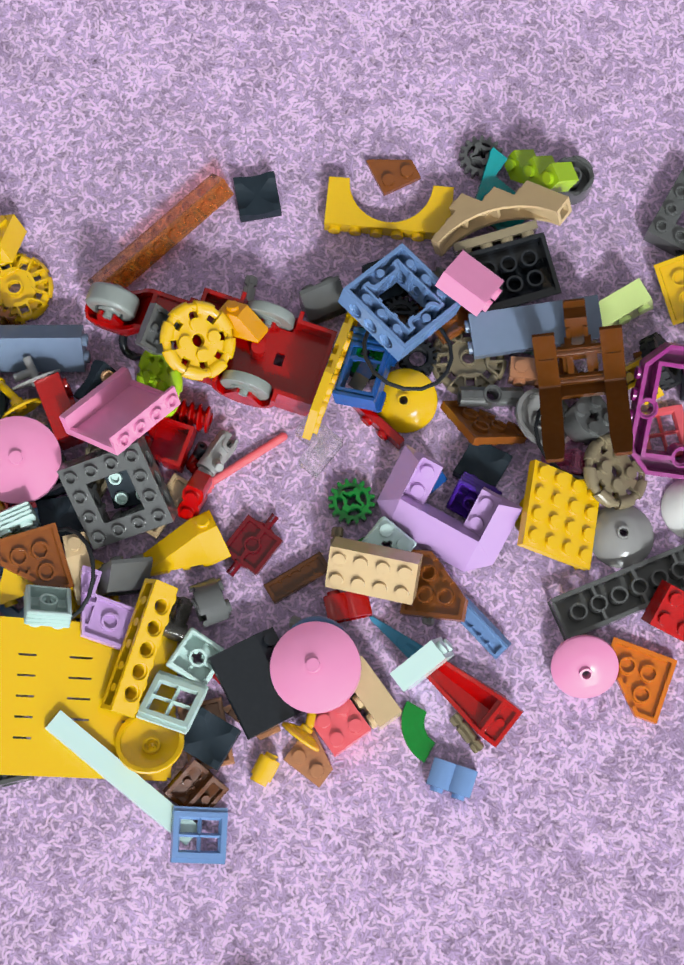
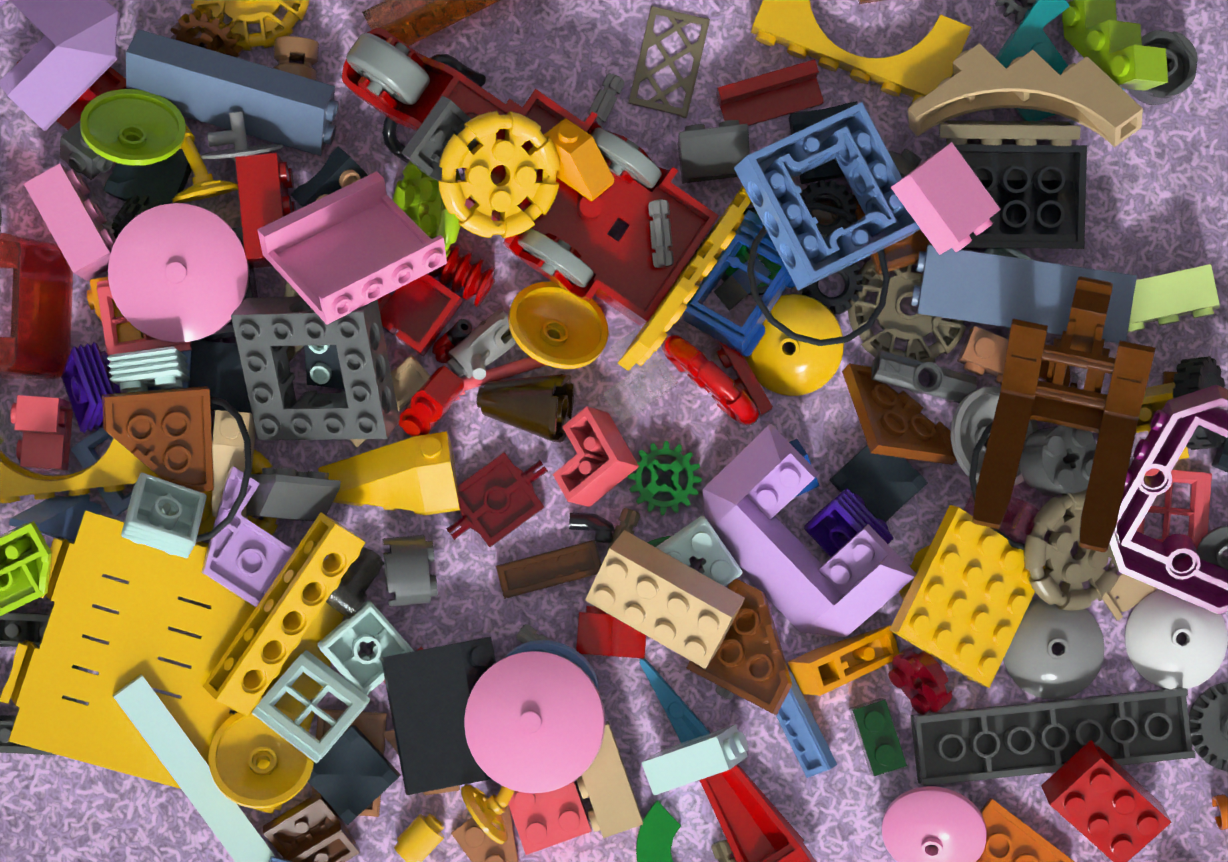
camera: 15 degrees right, 10 degrees up
(54, 314) = (298, 49): none -> medium nougat wheel
(255, 480) = (530, 404): none -> dark brown cone
(259, 428) = (557, 326): none -> yellow dish
(295, 269) = (651, 39): none -> dark tan window
(305, 352) = (661, 233): none -> light grey axle
(308, 503) = (600, 458): none -> coral brick
(314, 542) = (592, 522): none -> black arm
(347, 259) = (771, 94): none -> red panel
(362, 431) = (709, 376): none -> red plate
(496, 579) = (843, 661): none -> light orange slope
(531, 619) = (877, 736): none -> dark green brick
(551, 584) = (920, 680): none -> dark red plate
(656, 488) = (1129, 593): none -> tan piece

